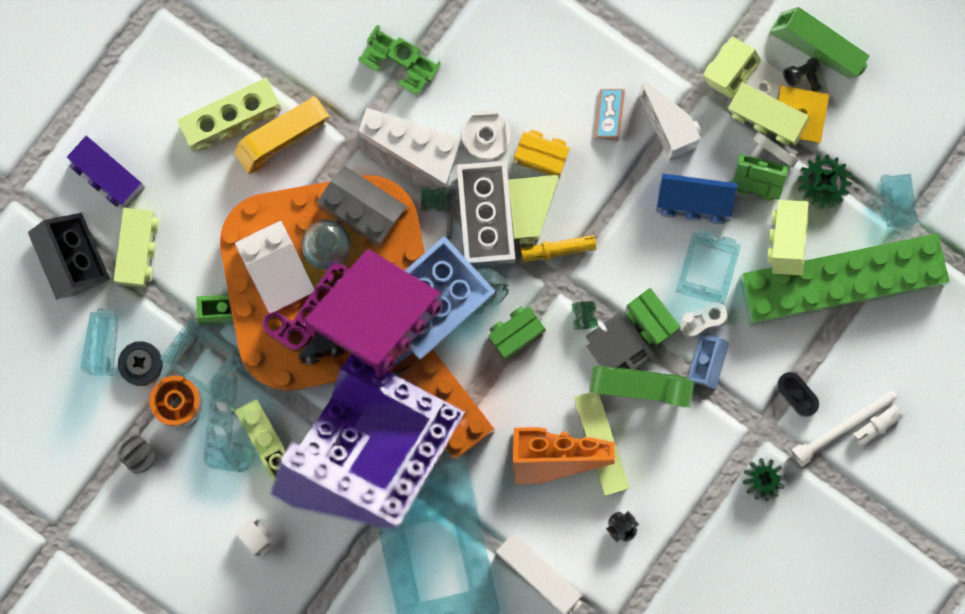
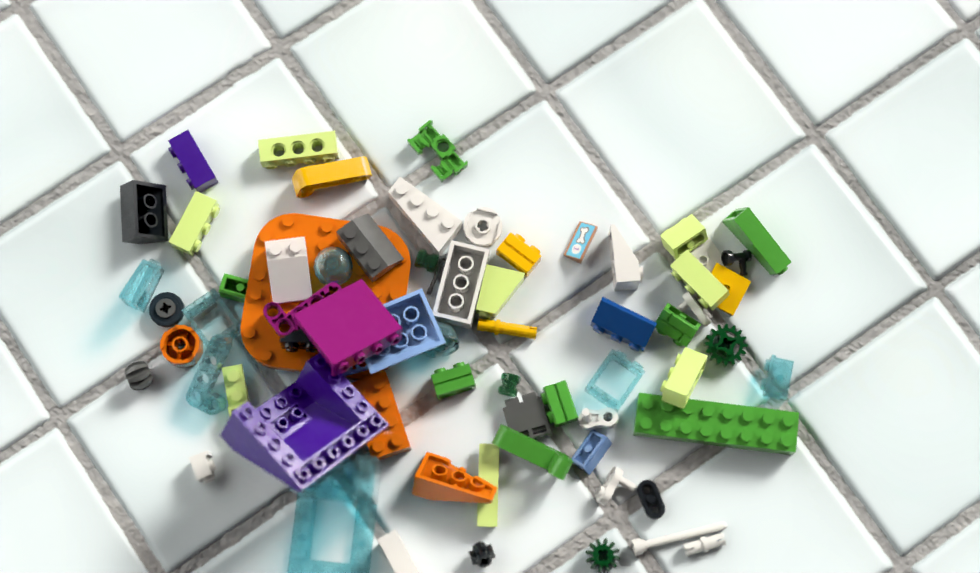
camera: 20 degrees right, 5 degrees down
(746, 383) = (614, 477): none -> white piece

